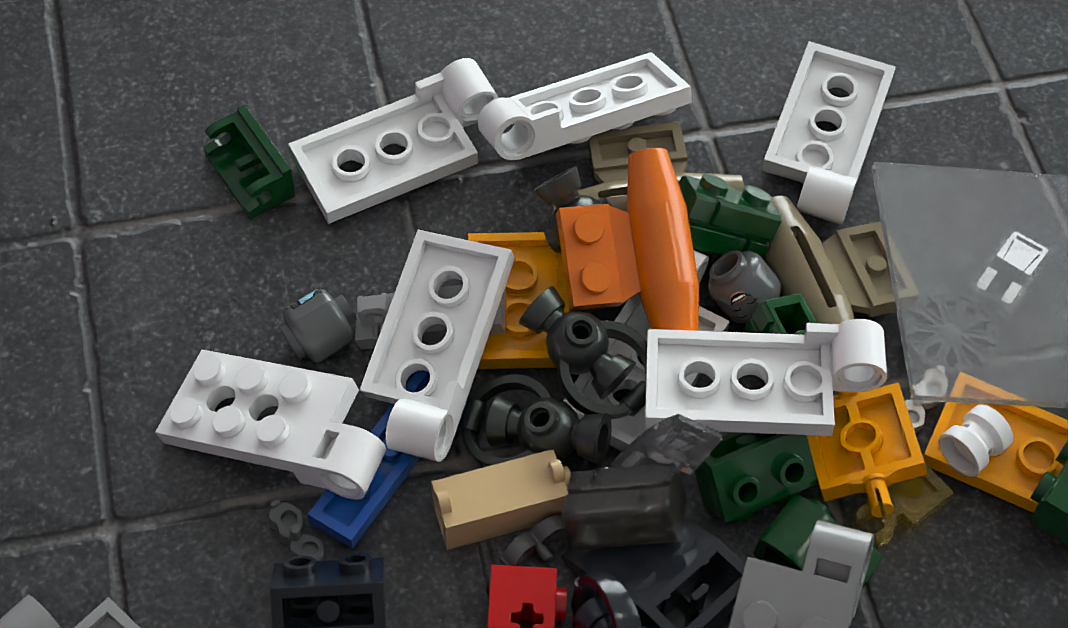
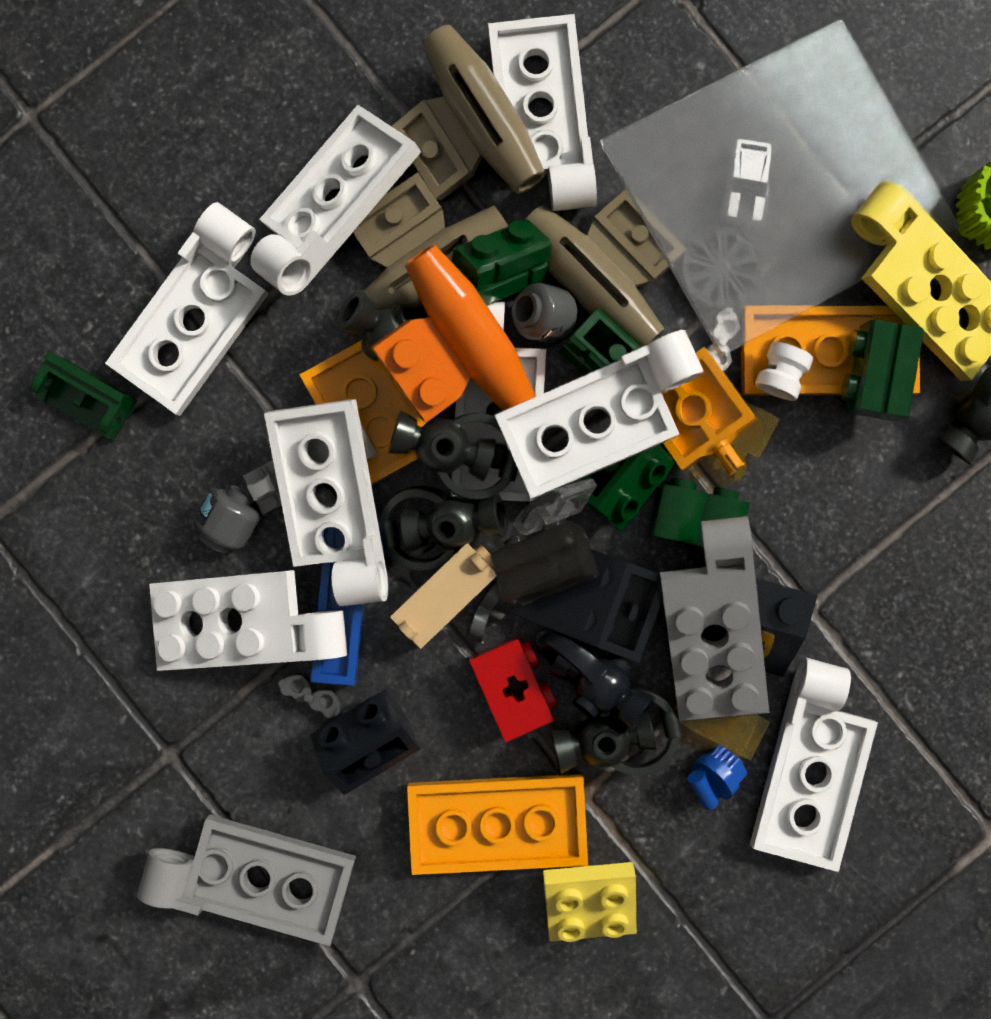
camera: 25 degrees left, 30 degrees up
(754, 101) = (467, 122): none -> dark tan plate

